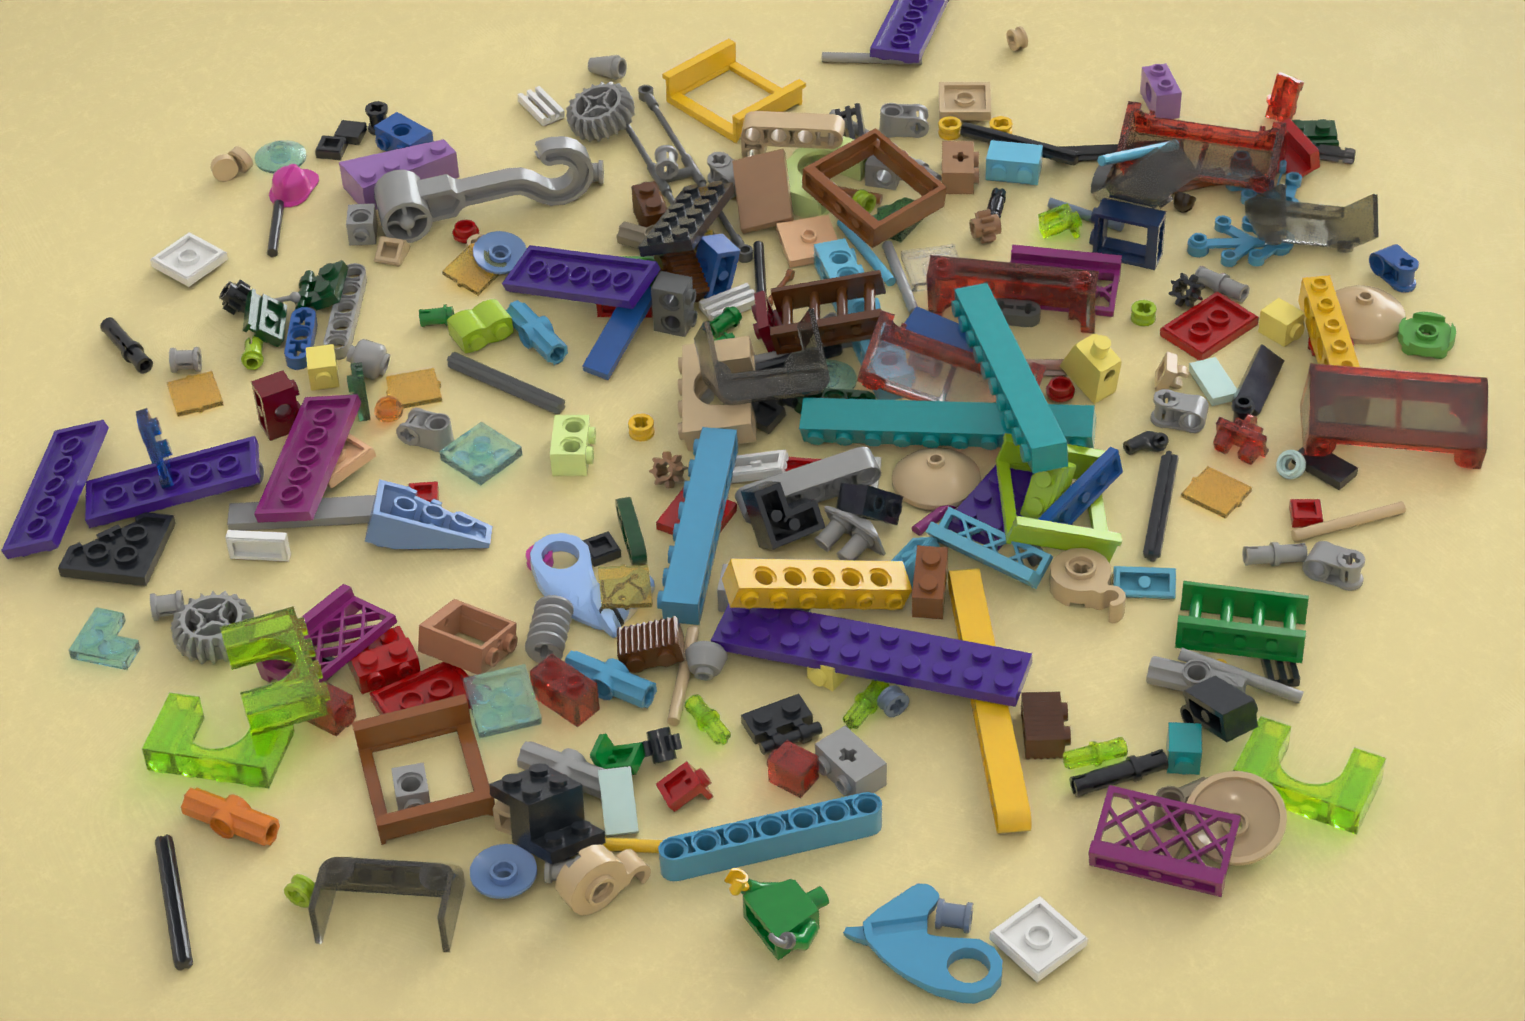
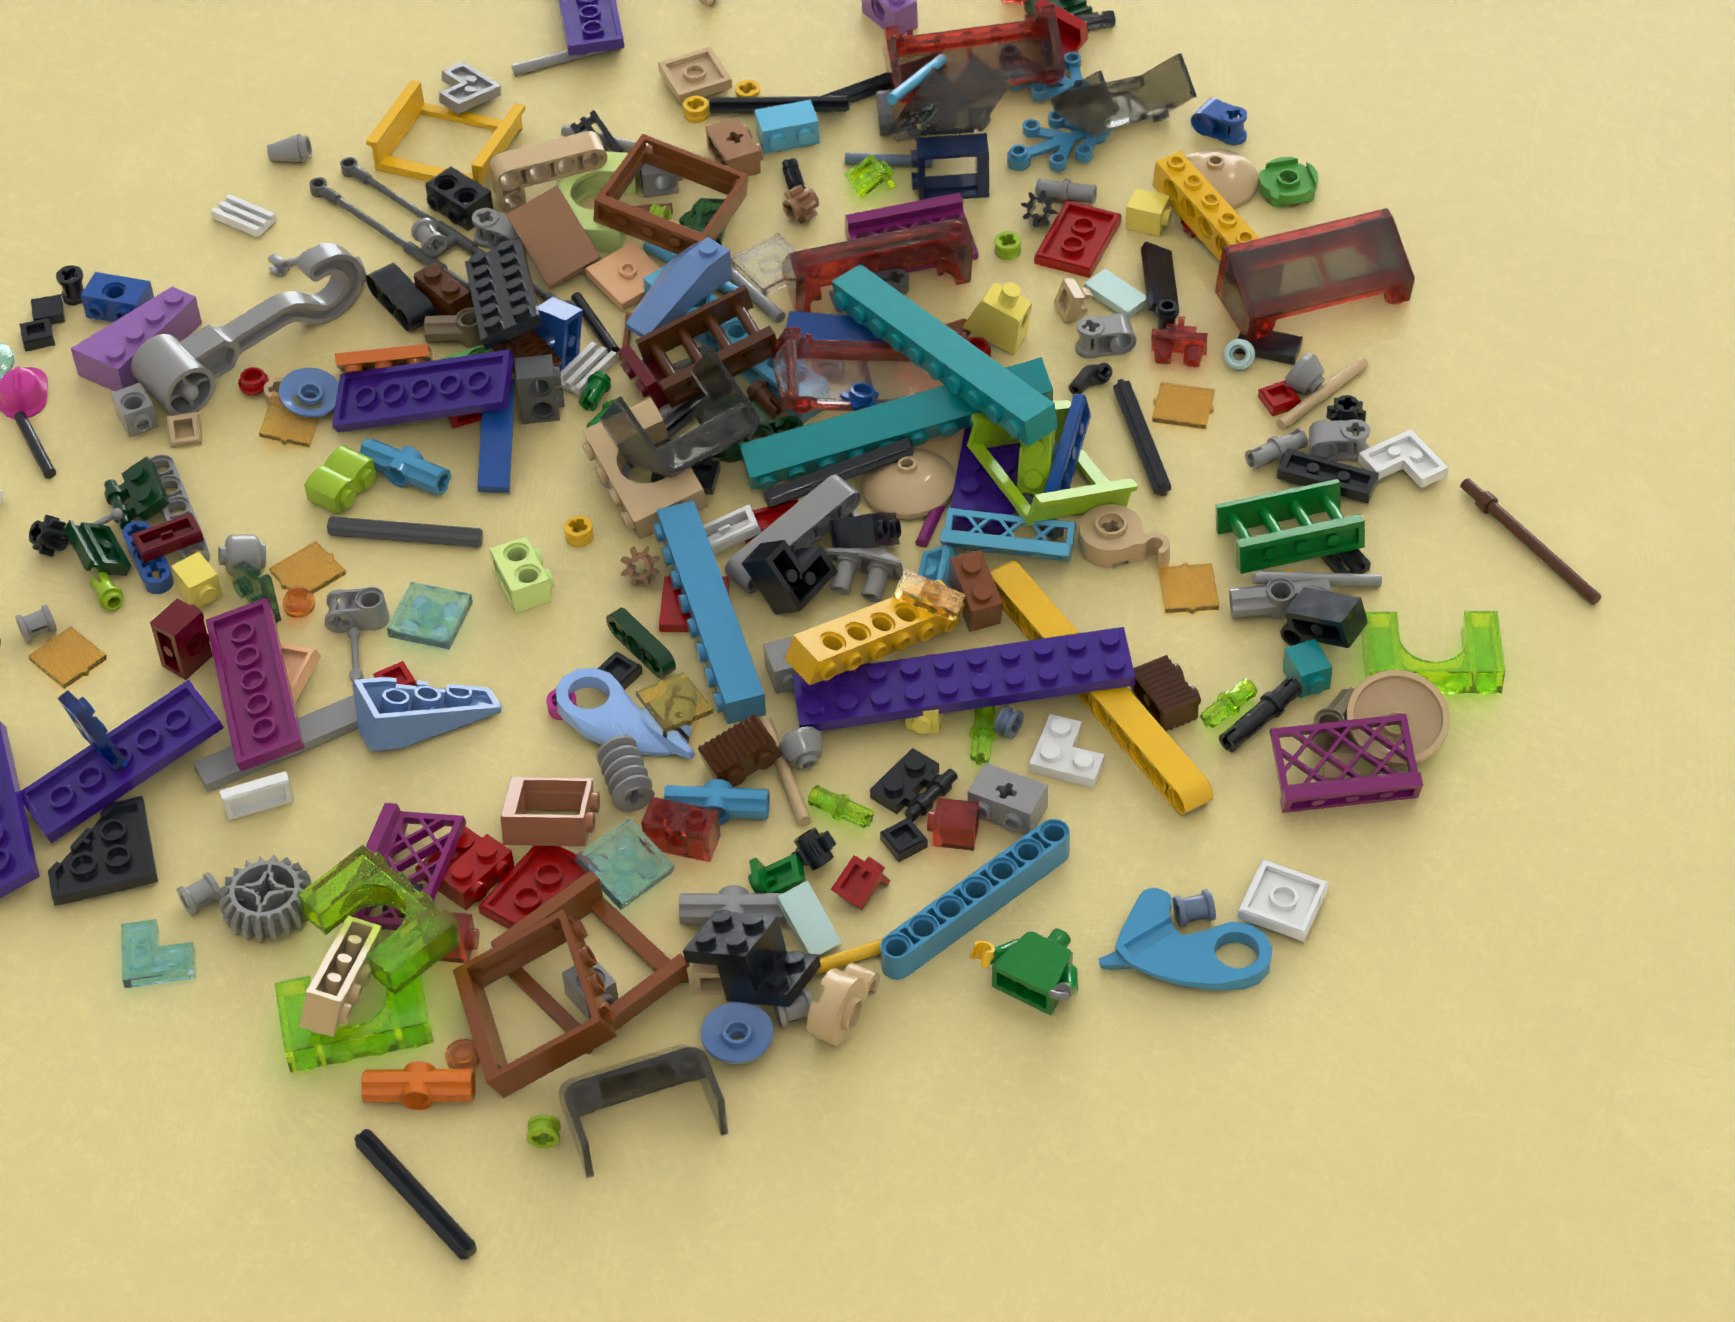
camera: 25 degrees left, 5 degrees up
(211, 705) = (340, 978): none -> tan brick
(281, 806) = (462, 1055): none -> clear orange plate
(298, 822) = (510, 956): none -> dark orange window
(320, 326) = (167, 537): none -> dark red tile
(416, 447) = (354, 633): none -> light grey hinge
(435, 315) = (284, 484): green pin -> none
(567, 241) = (382, 358): none -> orange plate
(600, 111) = (316, 196): light grey gear -> none
(617, 200) = (400, 296): none -> black beam
(711, 135) = (457, 197): none -> black brick
(745, 766) = (903, 839): none -> black tile
(775, 59) = (467, 88): none -> light grey plate
(847, 255) = (682, 285): none -> medium blue wedge
(852, 364) = (769, 403): none -> reddish brown pin
(879, 448) = (846, 470): none -> black axle
(880, 570) = (929, 595): none -> clear yellow plate
(900, 120) = (644, 115): light grey piece -> none
(922, 747) = (1060, 759): none -> white plate
(929, 391) = (860, 396): none -> blue plate
(1124, 645) = (1188, 588): none -> clear yellow piece
(1146, 581) = (1174, 517): medium azure slope -> none
(1322, 602) = (1311, 469): none -> black plate
(1338, 499) = (1306, 374): none -> light grey cone
(1357, 539) = (1345, 409): none -> black gear
(1391, 596) = (1406, 453): none -> white plate
(1444, 665) = (1489, 504): none -> reddish brown bar

